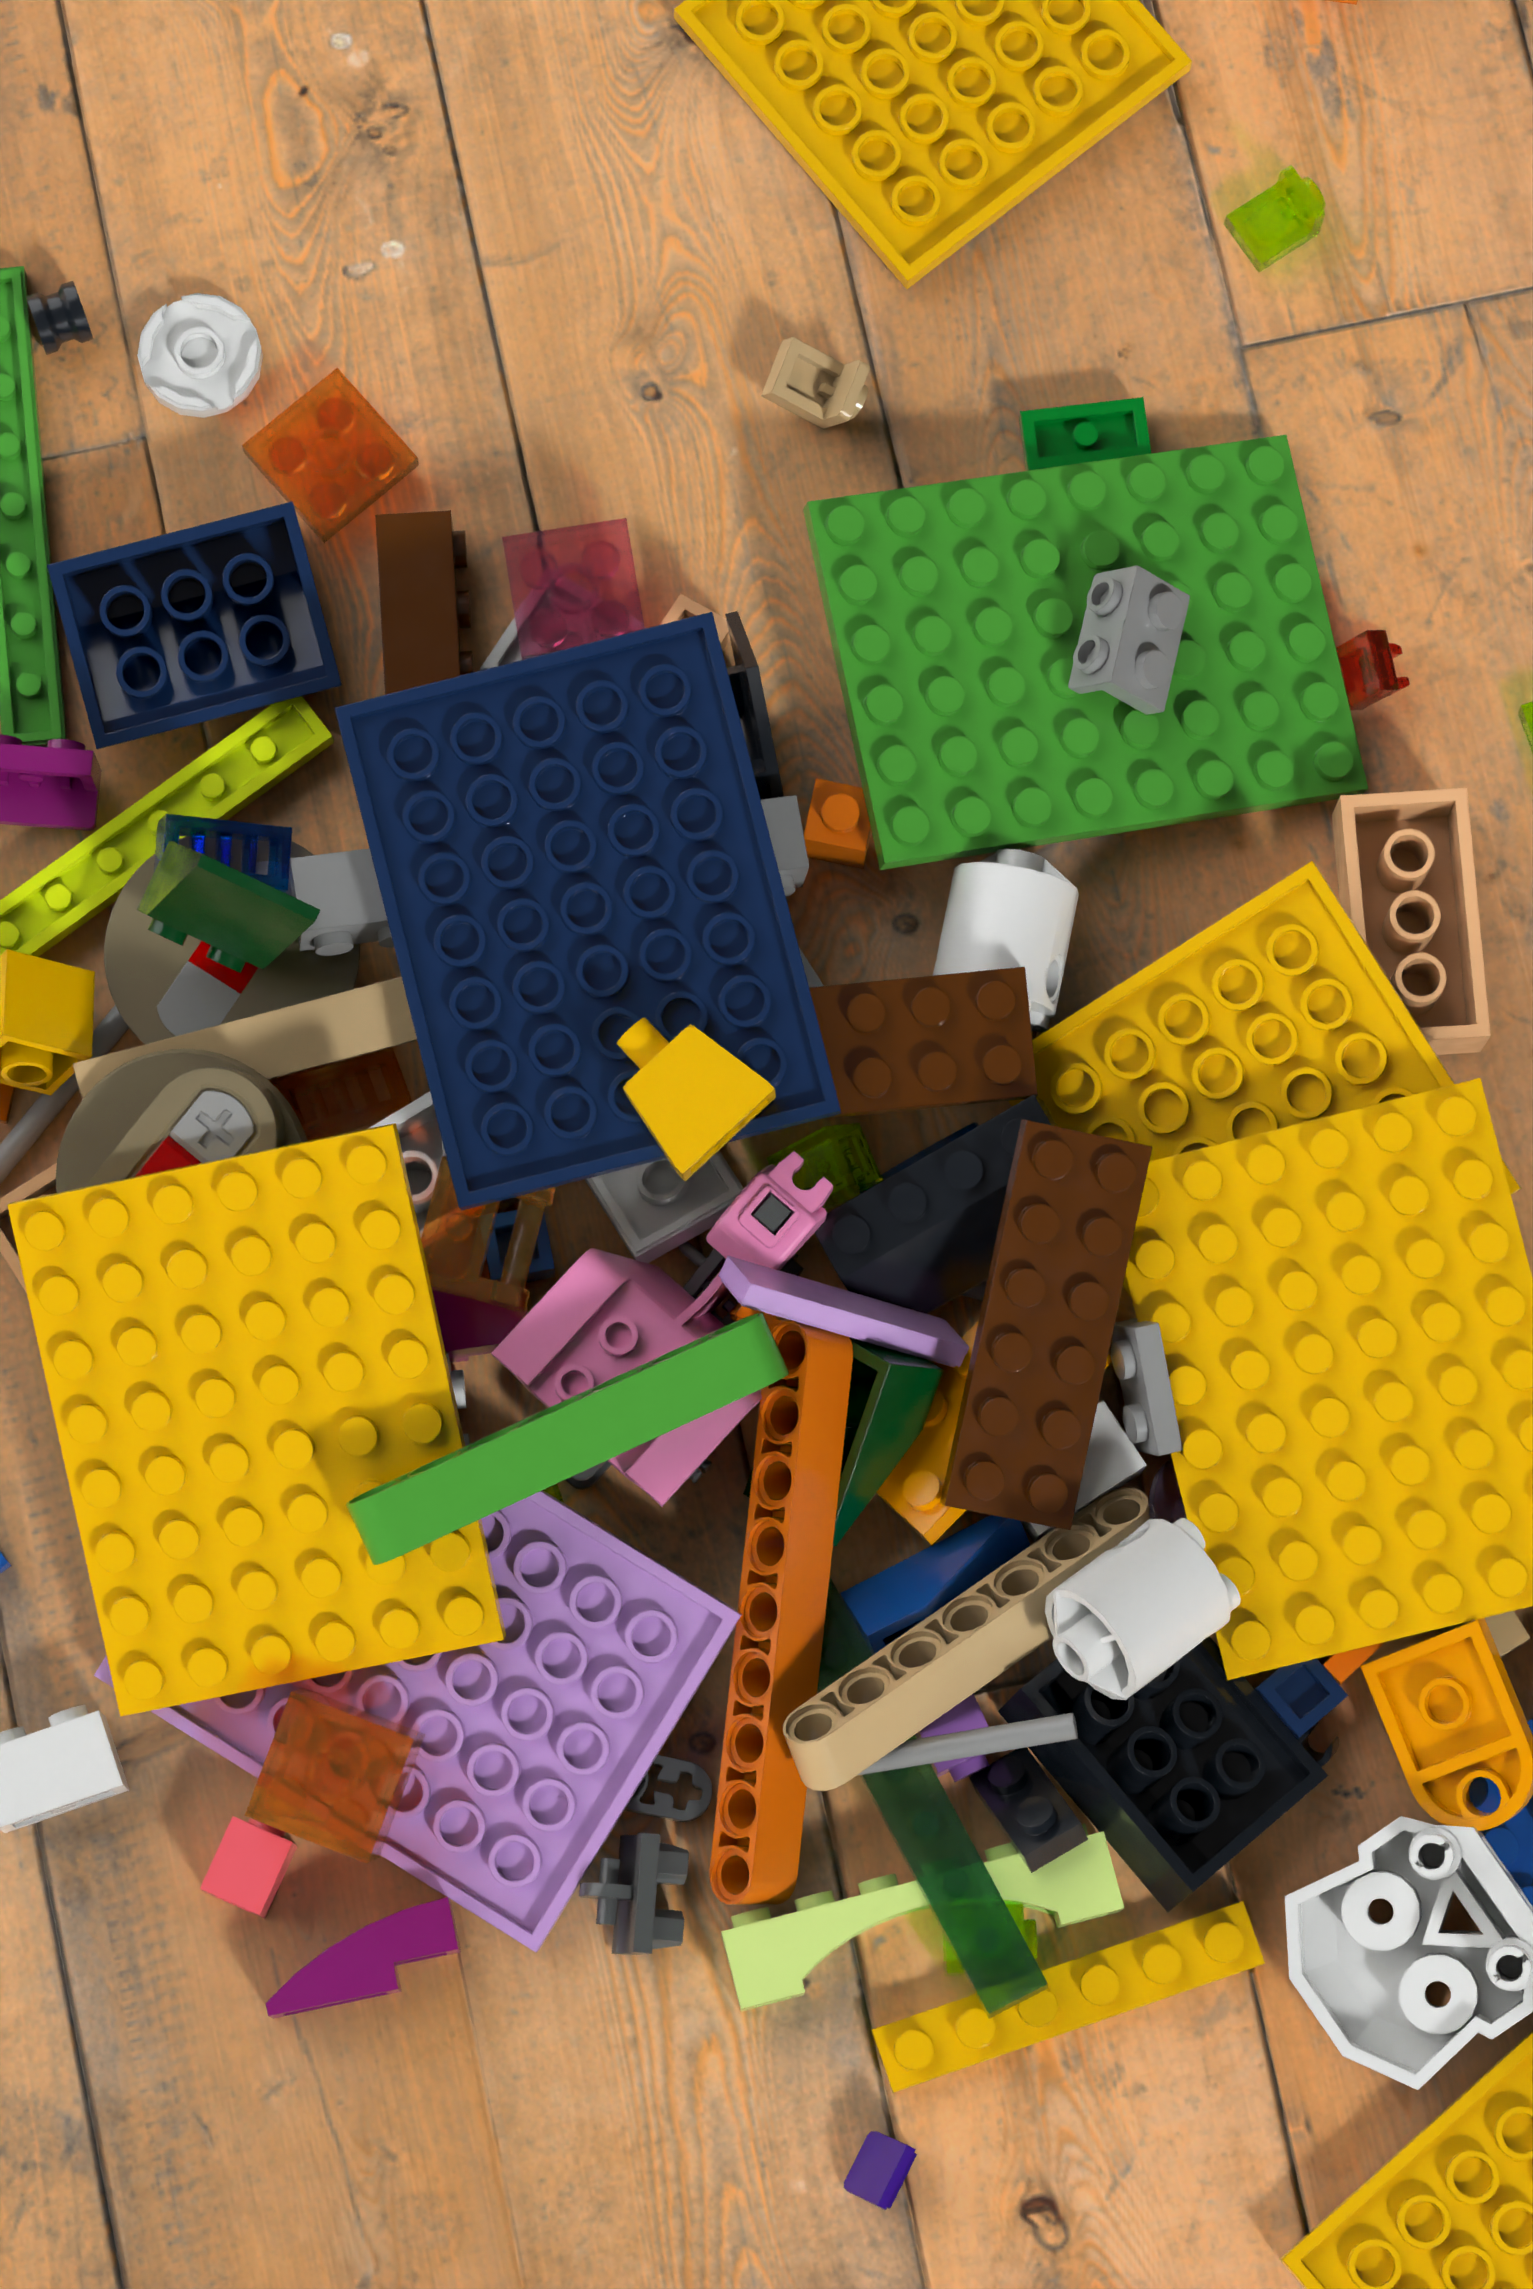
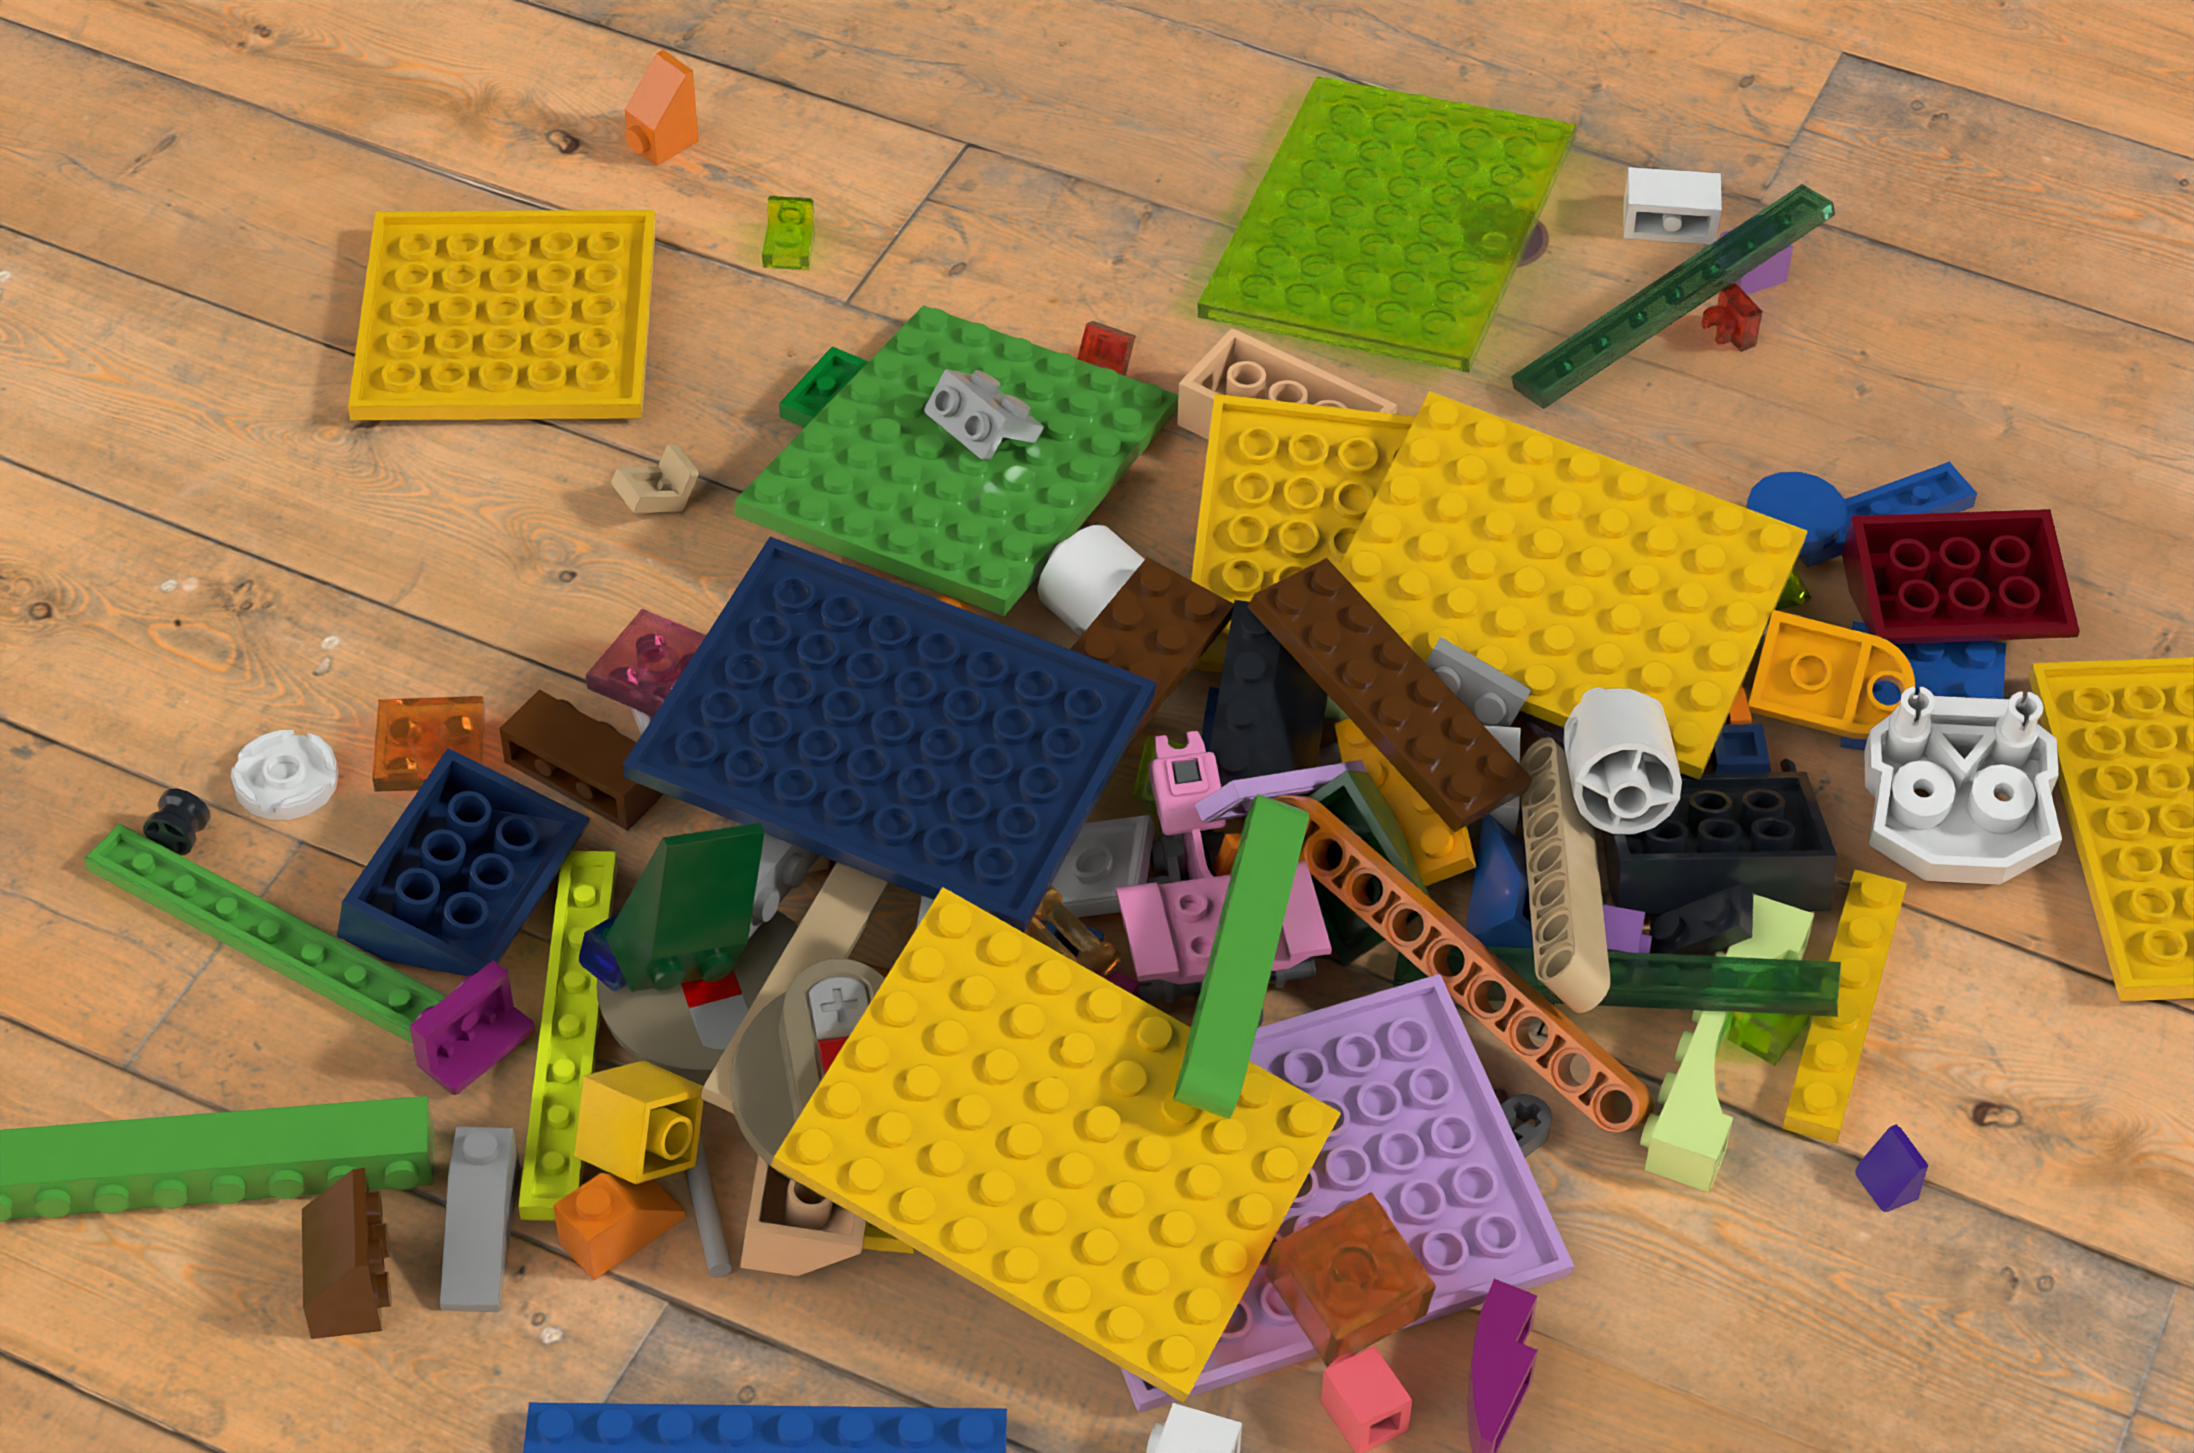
camera: 50 degrees left, 30 degrees down
(629, 1894) = (1580, 1184): dark grey hips -> none
(690, 1093) = (1074, 735): yellow torso -> none
(978, 1742) = (1640, 902): light grey bar -> none

